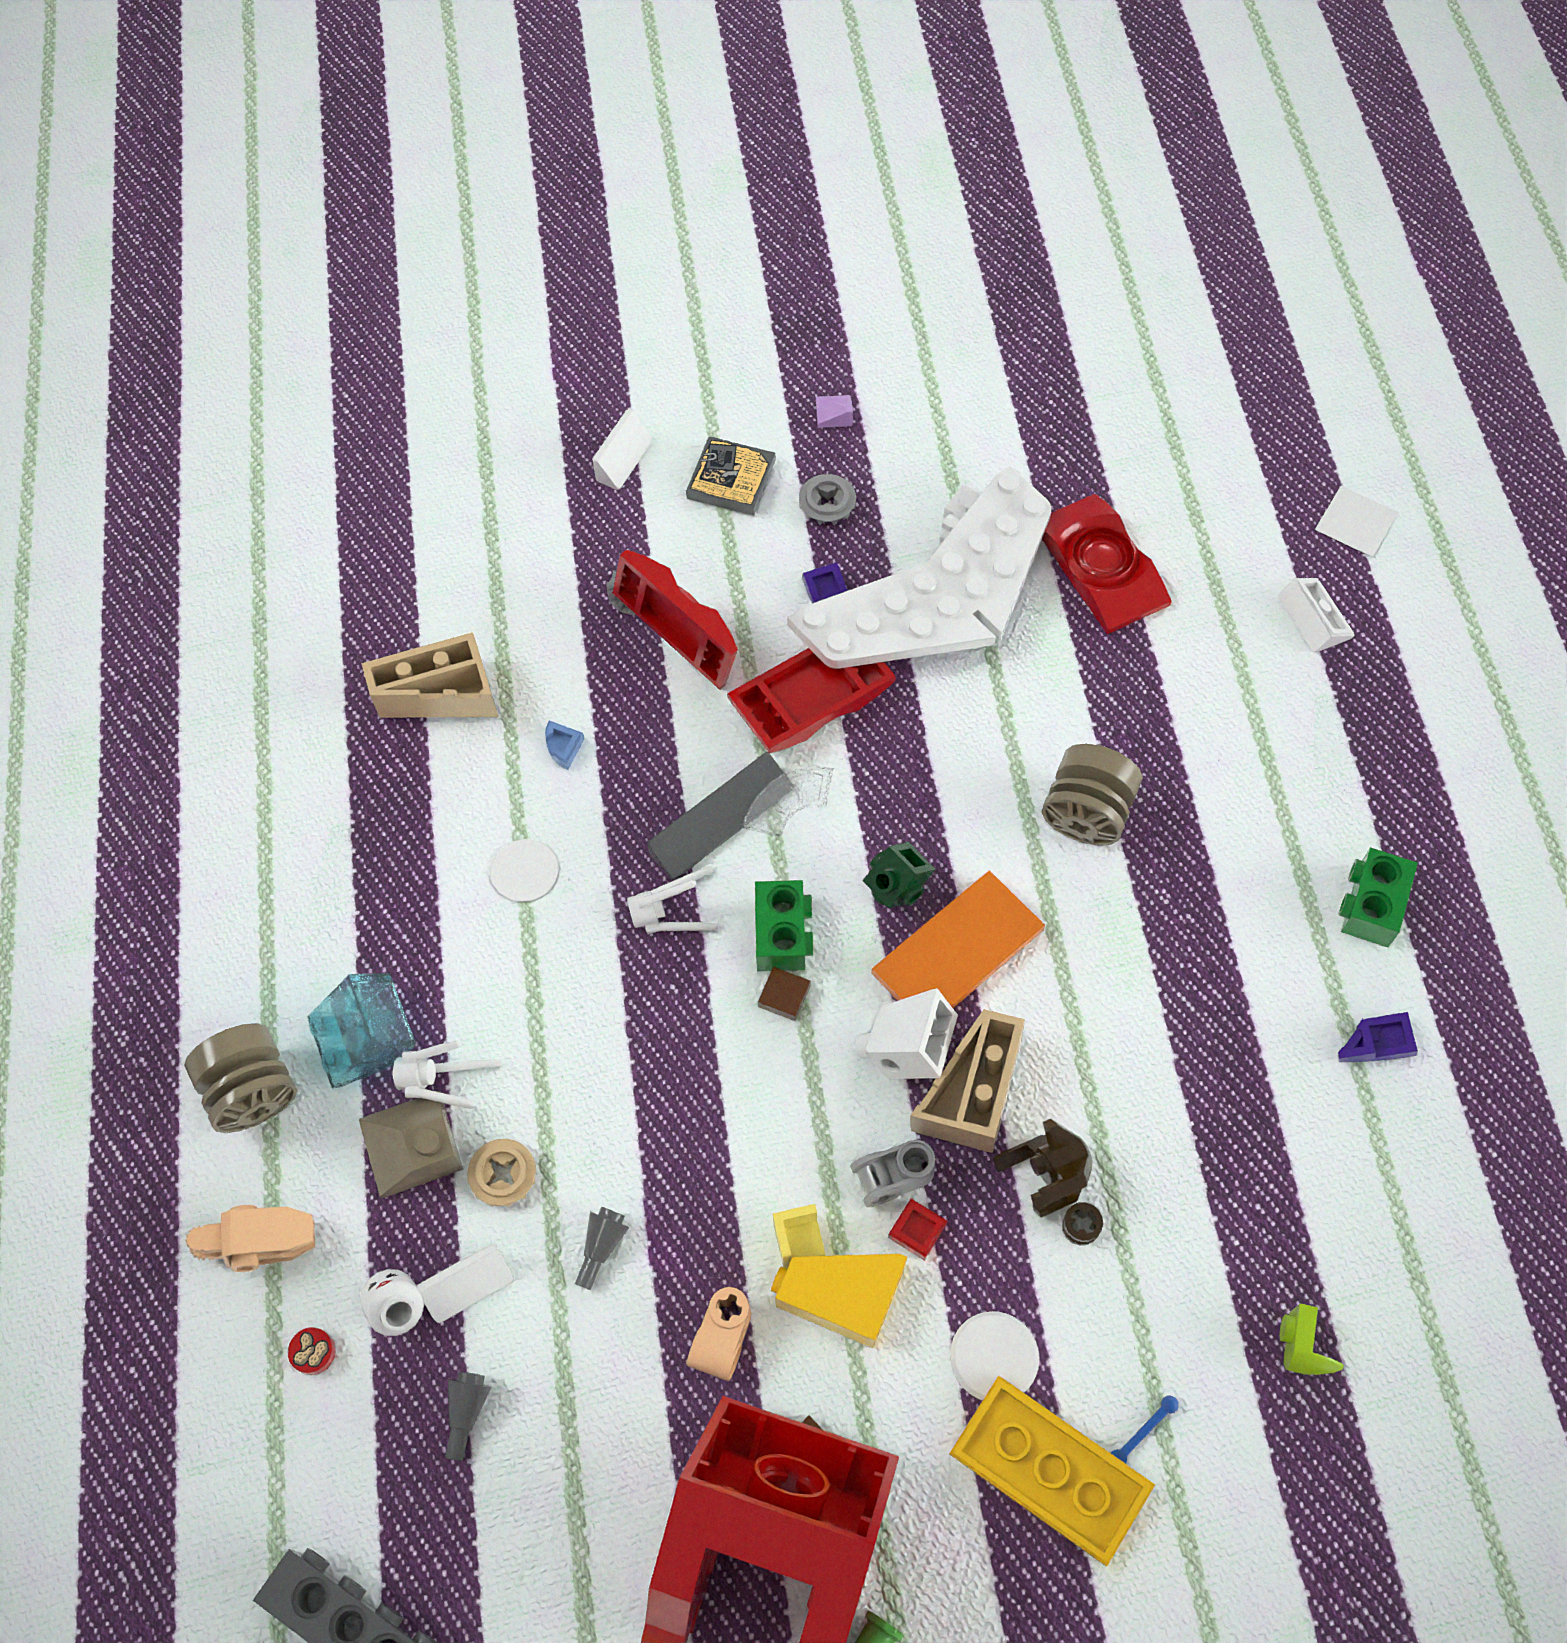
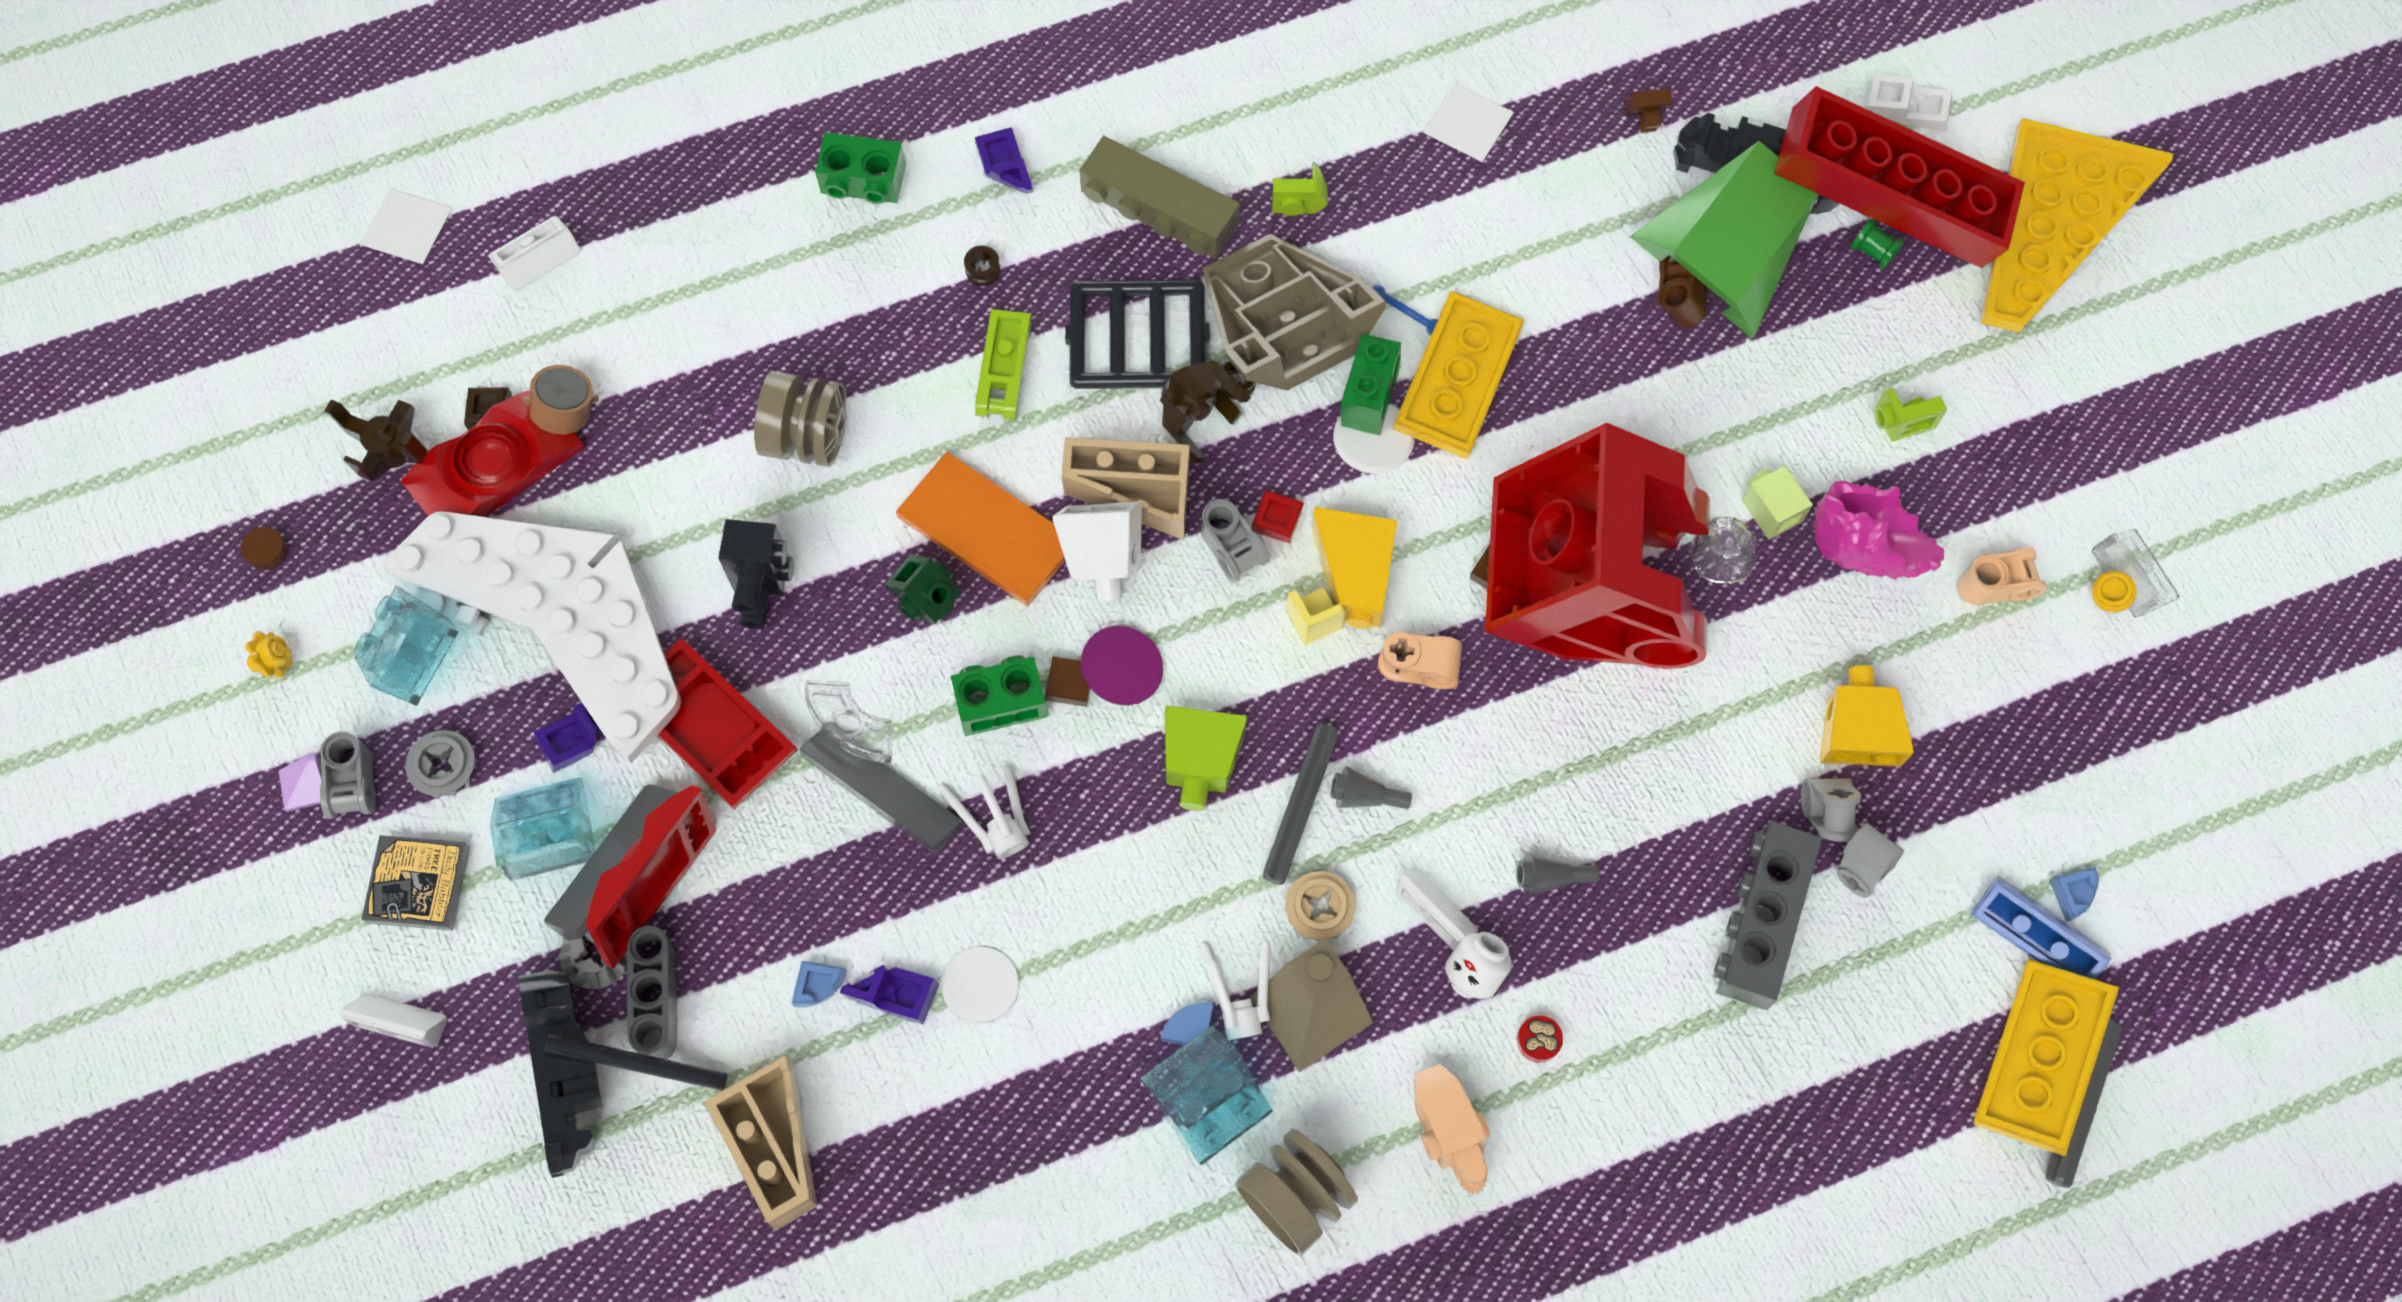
camera: 105 degrees left, 5 degrees up
(429, 1029) = (1187, 1023): none -> medium blue tile
(527, 596) = (635, 1062): none -> black bar
(535, 802) = (895, 993): none -> dark purple slope
(545, 548) = (561, 1082): none -> black piece
(573, 609) = (642, 975): none -> dark grey beam
(608, 1179) = (1300, 804): none -> dark grey axle
(679, 1092) = (1201, 752): none -> lime torso
(747, 636) = (571, 911): none -> dark grey slope
(749, 557) = (541, 829): none -> clear light blue slope
(787, 1042) = (1122, 665): none -> magenta piece
(833, 434) = (346, 785): none -> light grey piece
(930, 474) = (404, 646): none -> clear light blue slope
(945, 737) = (755, 566): none -> black brick
(949, 391) = (268, 654): none -> yellow plant
(1047, 1358) = (1371, 384): none -> green brick
(1049, 397) = (264, 548): none -> reddish brown tile
(1129, 479) = (384, 438): none -> dark brown piece
(1134, 993) = (1003, 363): none -> lime plate
(1150, 611) = (560, 399): none -> piece
(1150, 1285) = (1288, 311): none -> dark tan wedge
(1163, 558) = (481, 400): none -> dark brown tile
(1207, 1122) = (1117, 290): none -> black bar
(1255, 984) = (984, 254): none -> dark brown bush
(1313, 1186) = (1159, 197): none -> olive brick
(1391, 1579) = (1468, 122): none -> white sticker

